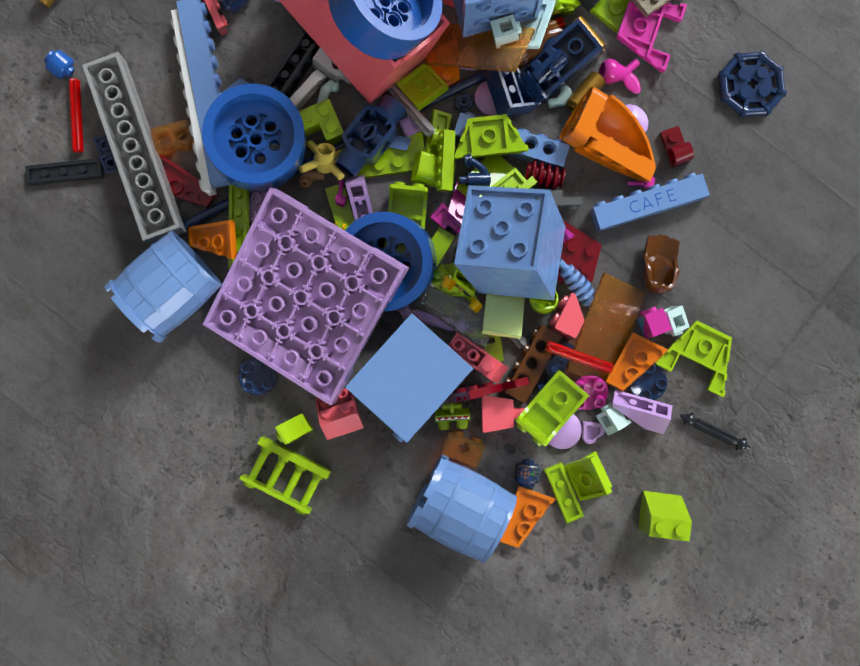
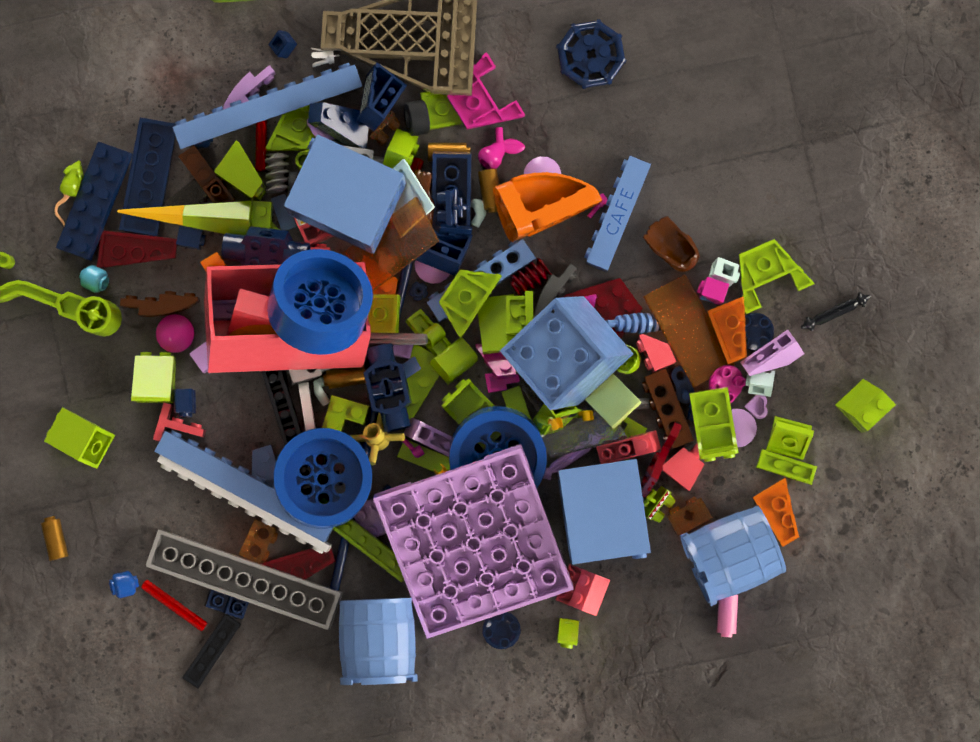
camera: 50 degrees left, 0 degrees up
(215, 238) = (368, 573): orange wing -> none
(286, 455) = (598, 650): lime fence -> none
(309, 177) = (379, 467): medium nougat arm -> none
(350, 97) = (344, 377): none -> pearl gold brick
(409, 543) = (727, 616): none -> bright pink brick
(445, 161) = (457, 346): lime piece -> none
(482, 178) = (493, 330): dark blue plant -> none
(505, 30) = (393, 221): light aqua brick -> none
(527, 473) = (748, 482): dark blue head -> none
(579, 357) = (692, 369): red axle -> none
(676, 148) = (591, 155): dark red plate -> none

